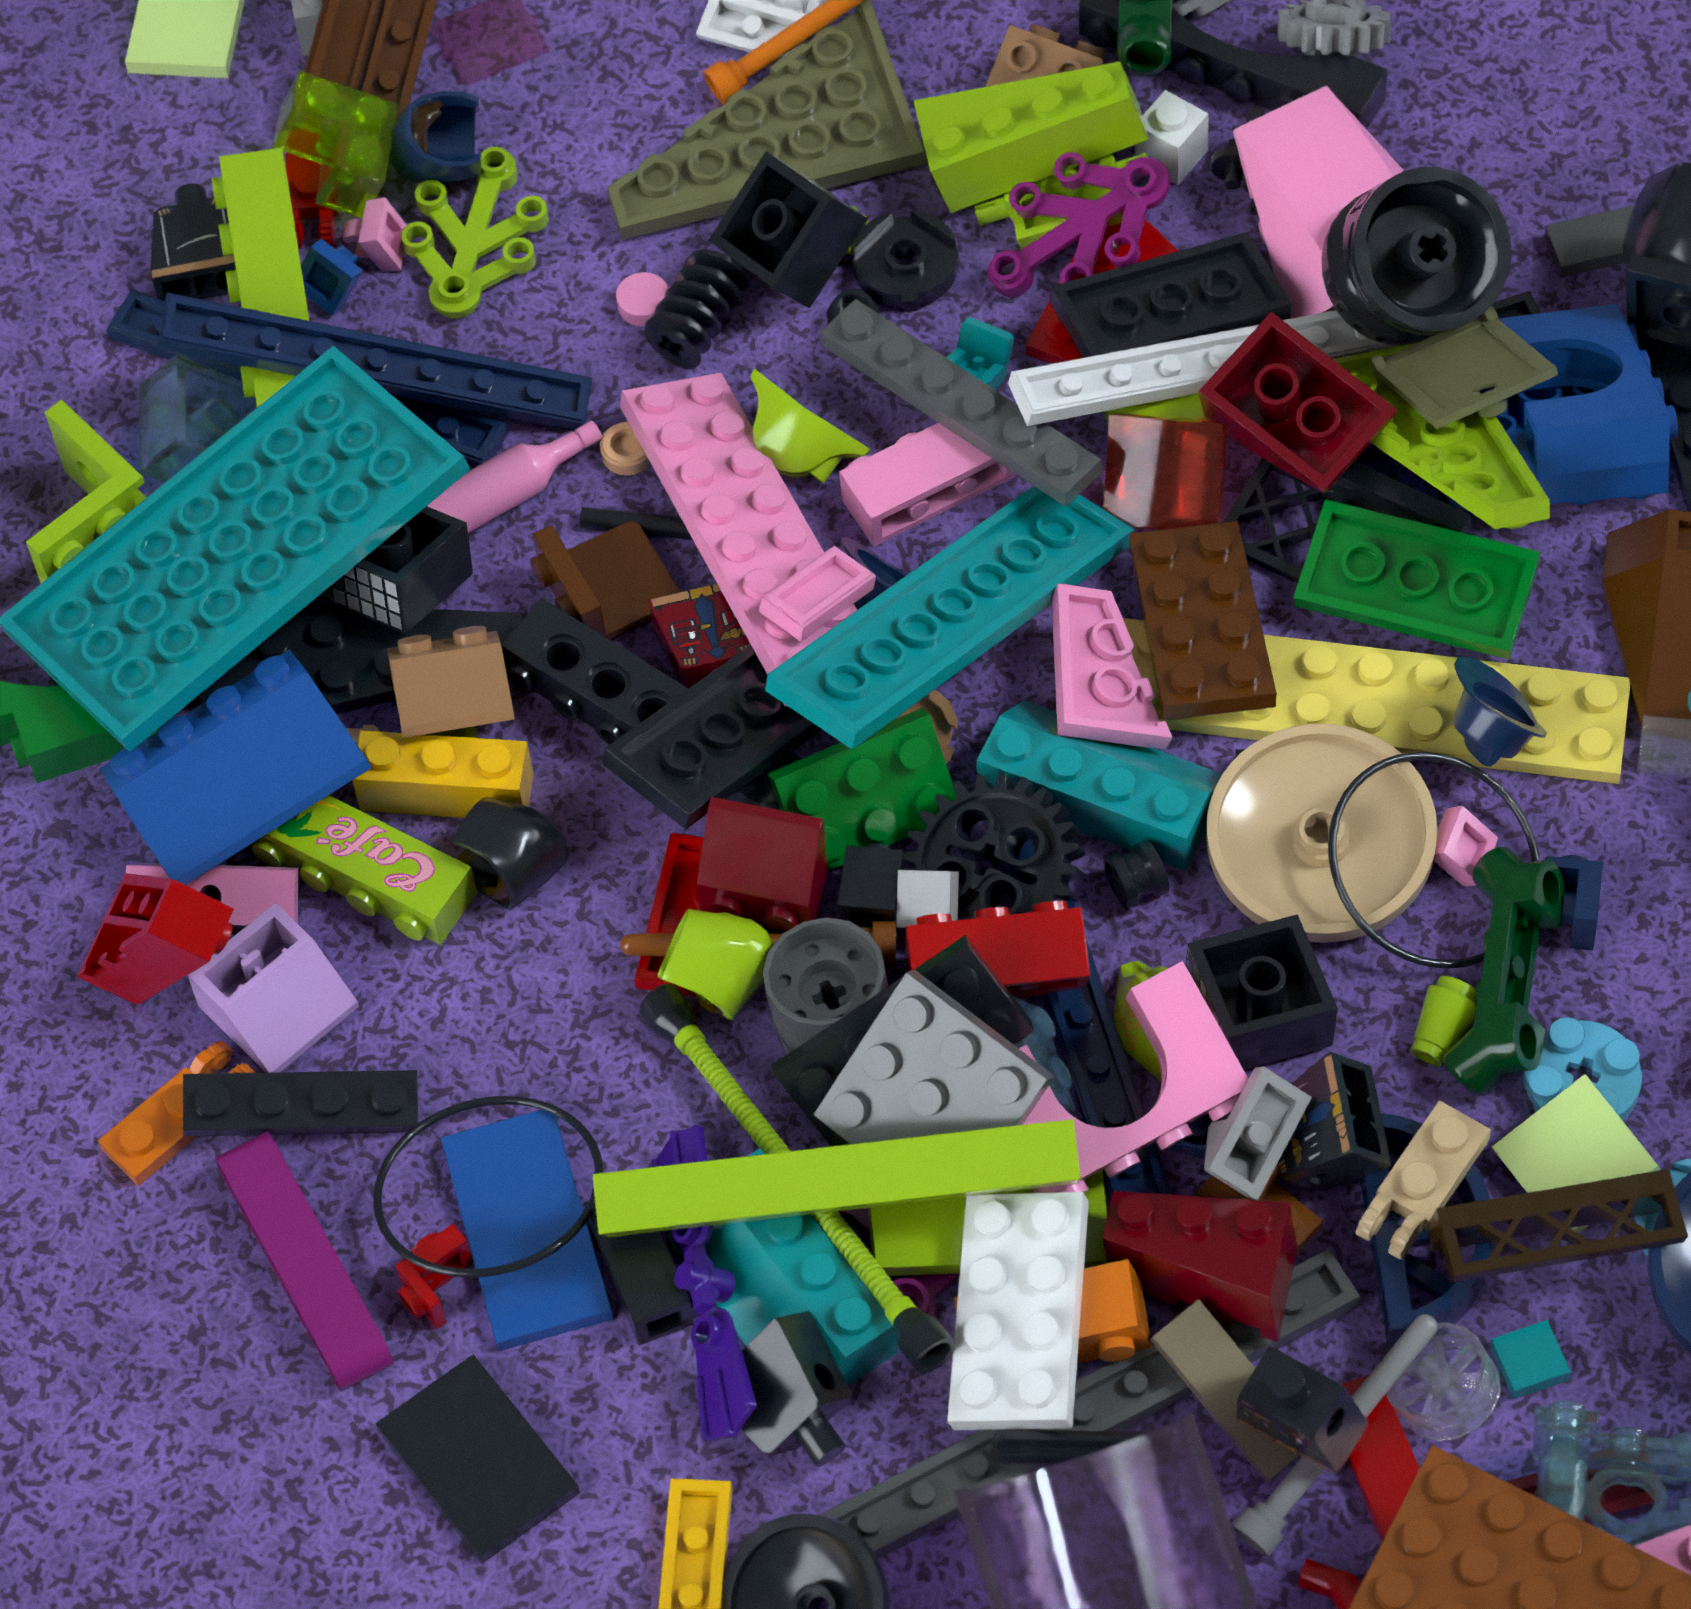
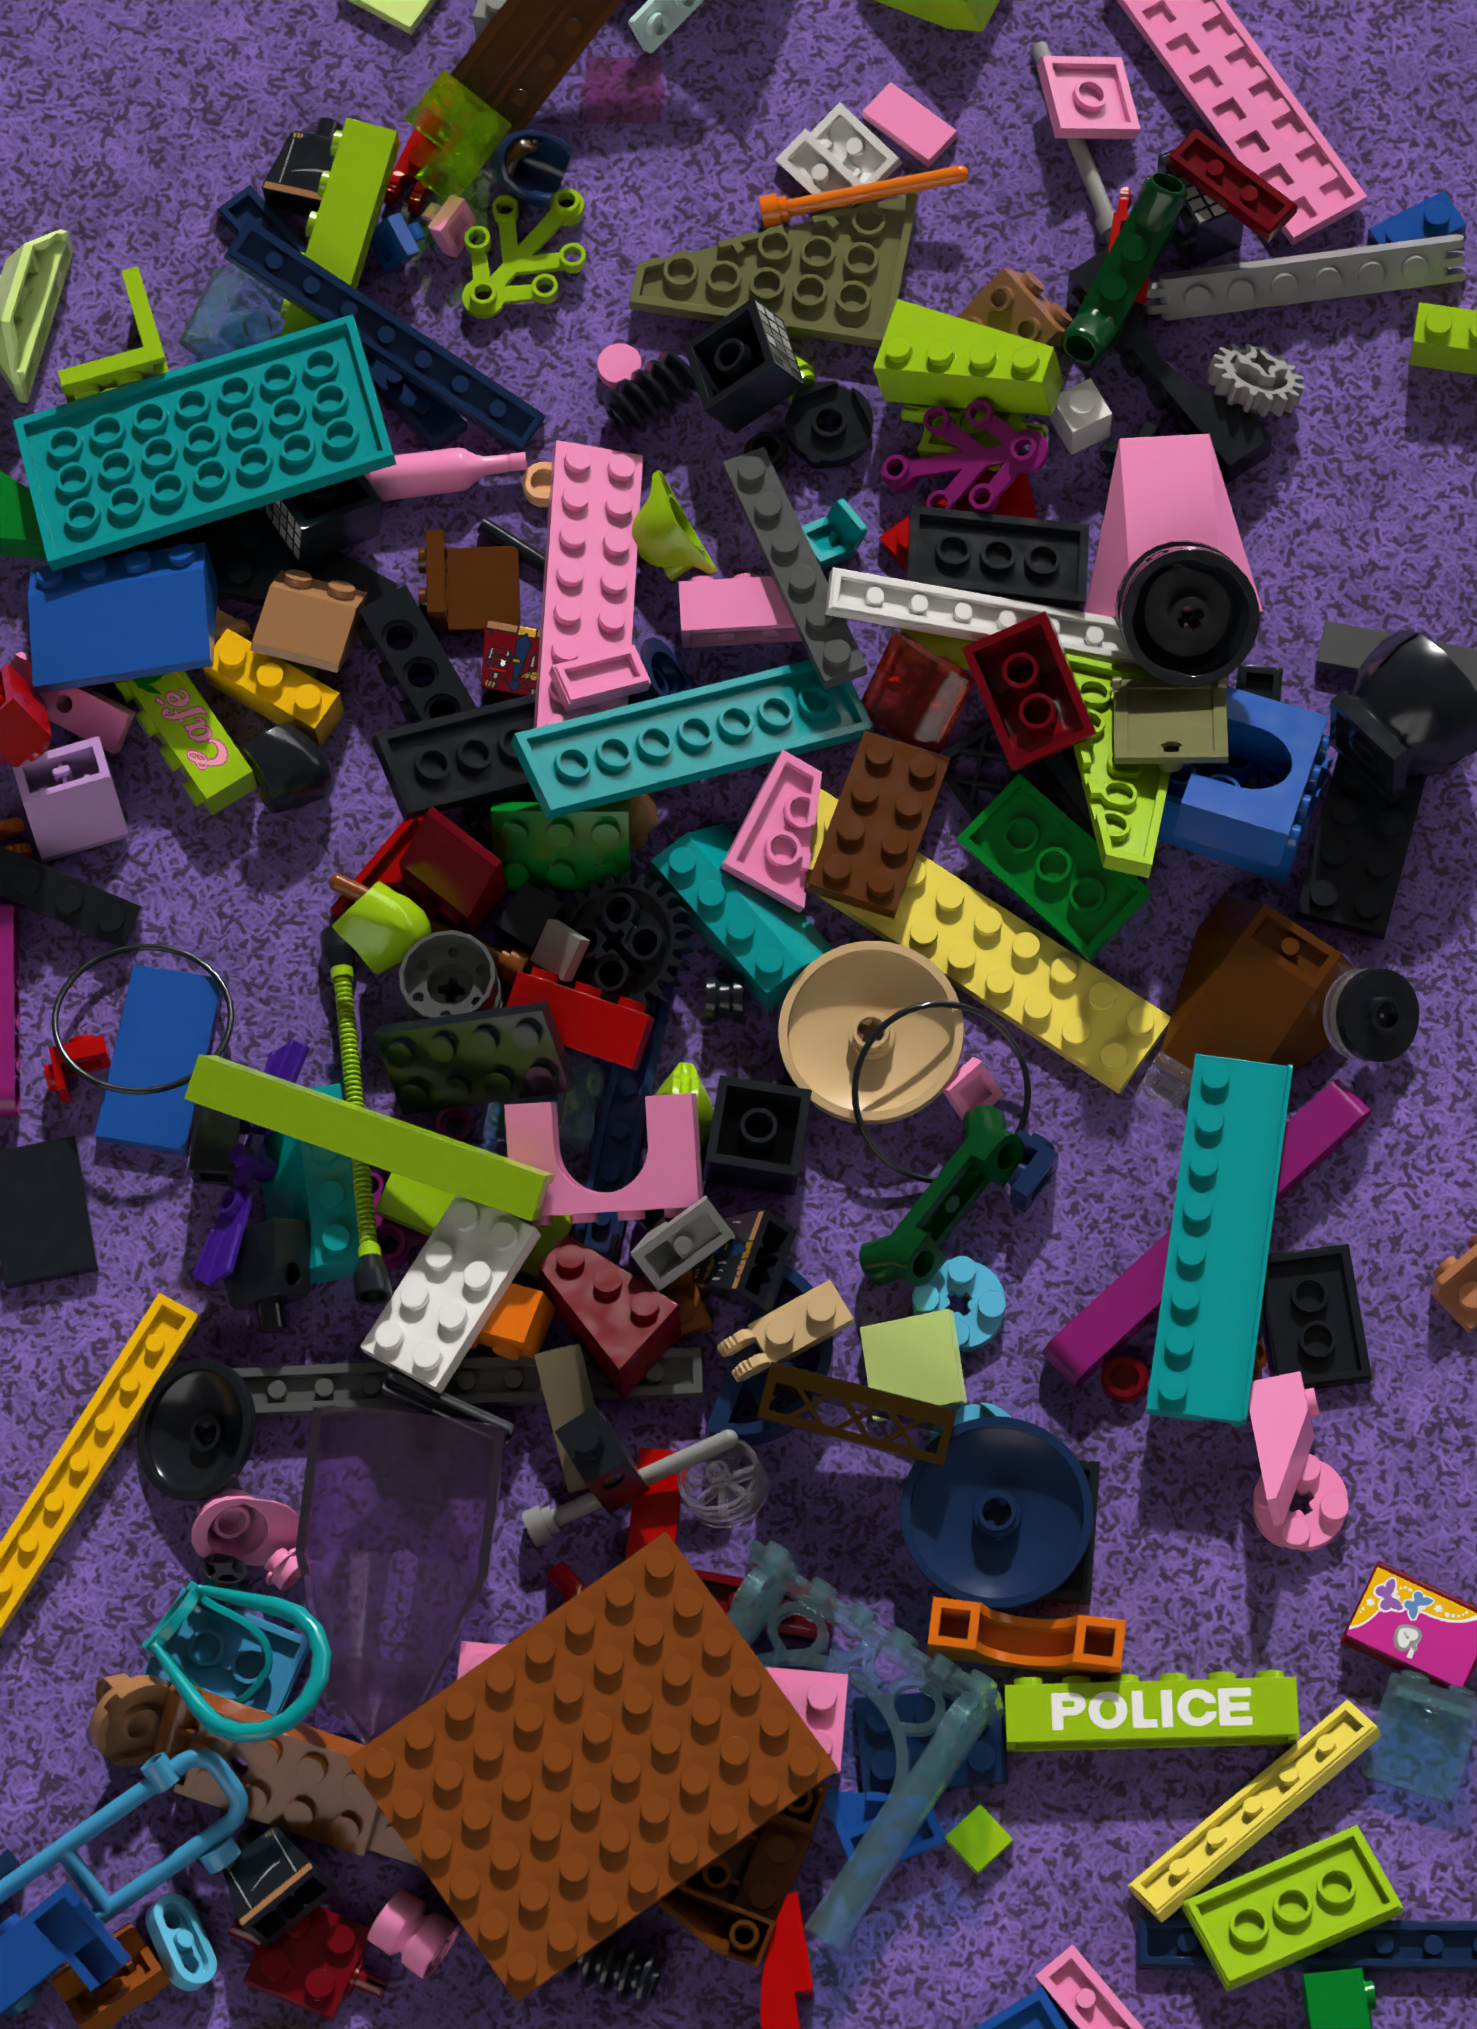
camera: 25 degrees right, 10 degrees up
(930, 1073) = (473, 1091): plate -> none
(1444, 1019) = (880, 1215): lime cone -> none
(1492, 713) = (1046, 998): dark blue piece -> none
(1530, 1359) = (800, 1495): teal tile -> none

